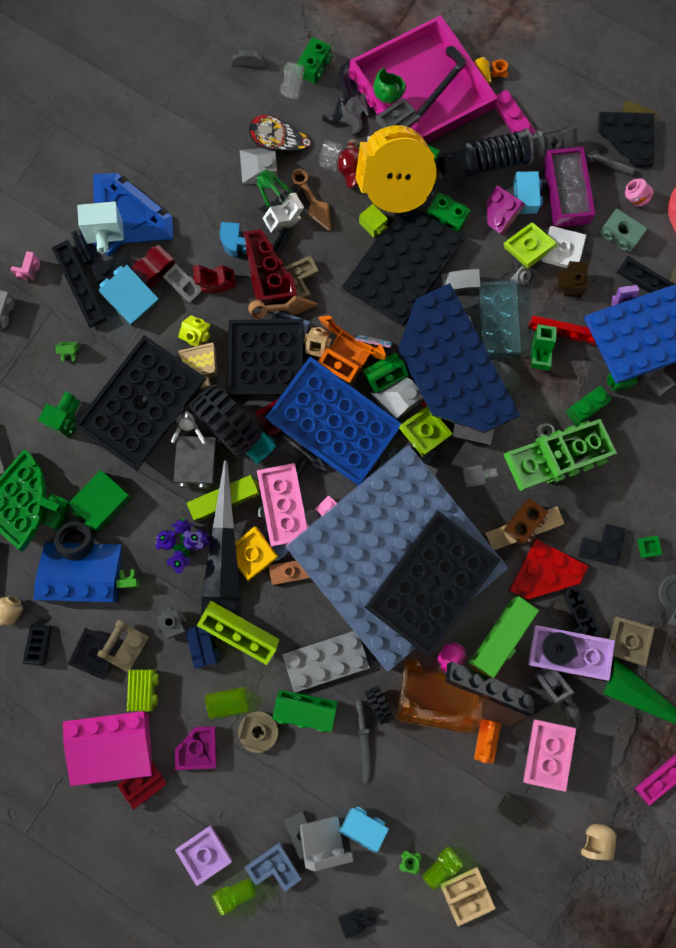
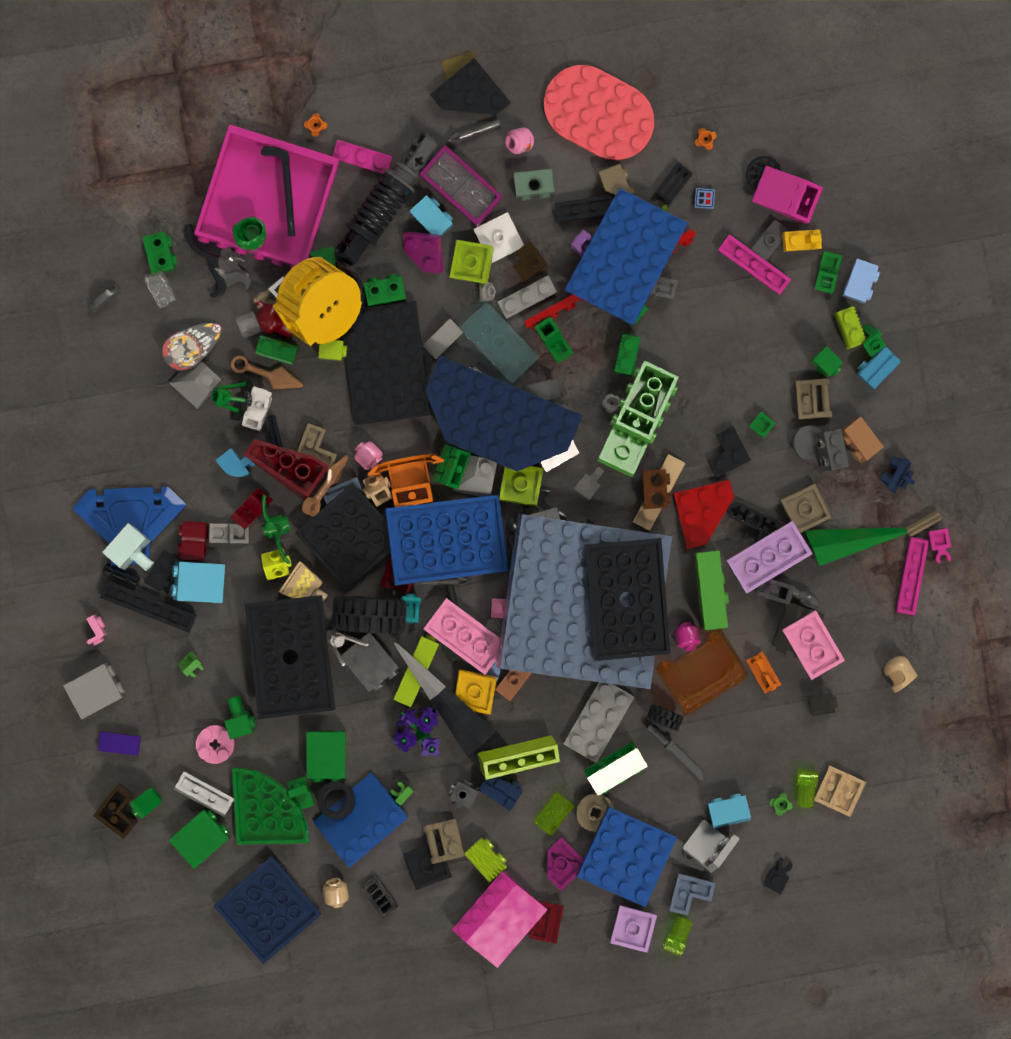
camera: 45 degrees left, 10 degrees up
(19, 422) = (207, 752): none -> bright pink plate
(219, 305) = (275, 527): none -> green plant
(250, 790) = (626, 856): none -> blue plate
(333, 309) = (368, 455): none -> bright pink head
(334, 188) = (277, 350): none -> green brick
(373, 341) = (420, 450): sticker -> none
(398, 114) = (279, 253): dark grey plate -> none
(483, 66) = (303, 139): yellow cone -> none
(489, 688) = (733, 636): black plate -> none
(548, 305) = (527, 297): none -> light grey plate
(567, 652) = (748, 563): black piece -> none

